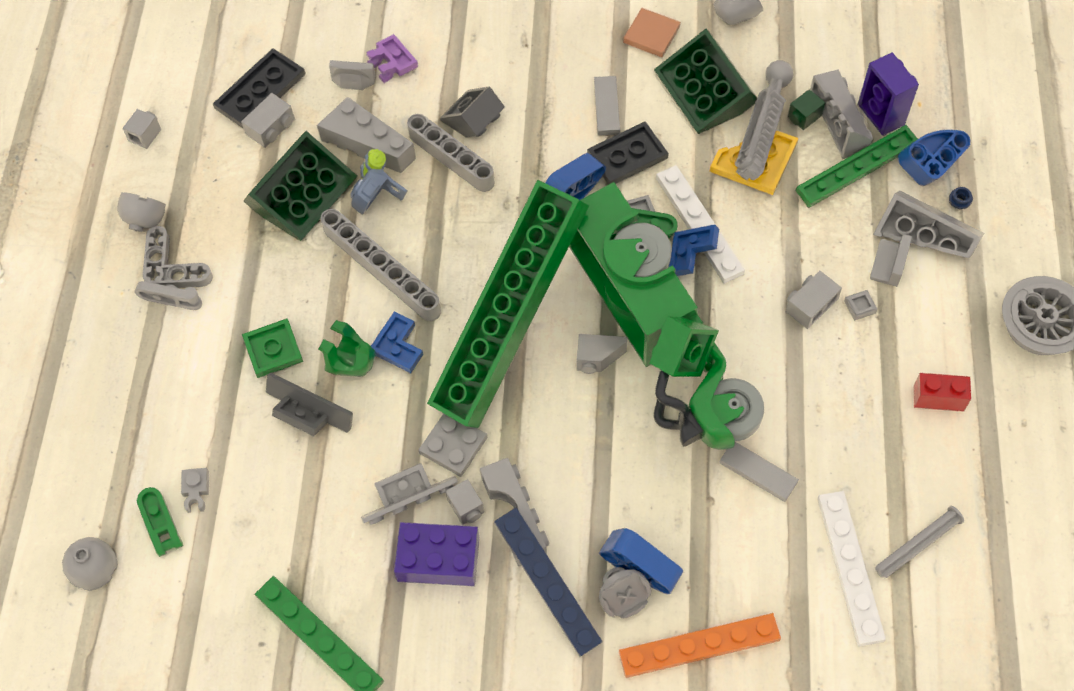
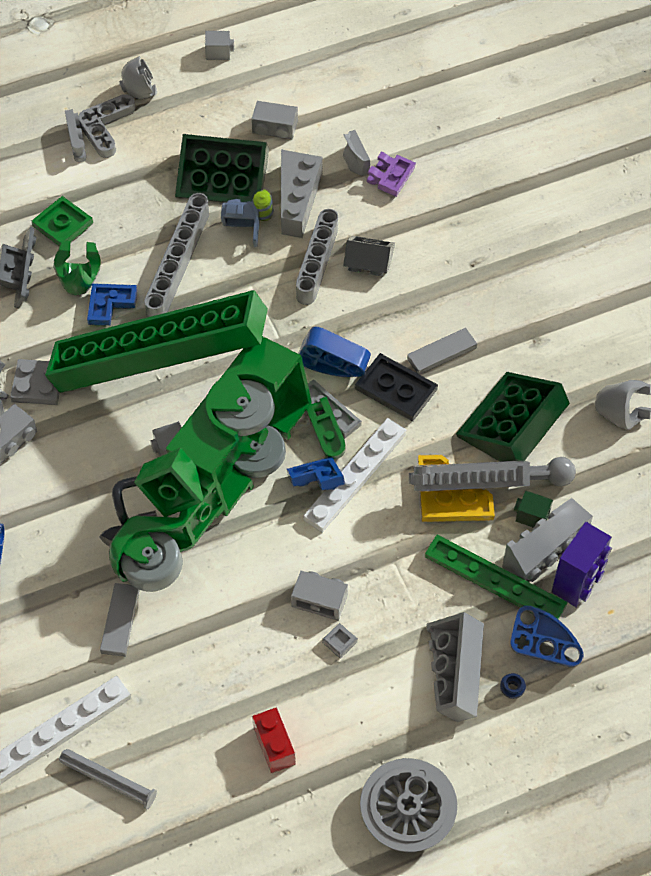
camera: 60 degrees right, 5 degrees down
(271, 74) = (313, 100): black plate -> none
(651, 32) = (548, 353): nougat tile -> none
(890, 260) = (403, 649): light grey panel -> none

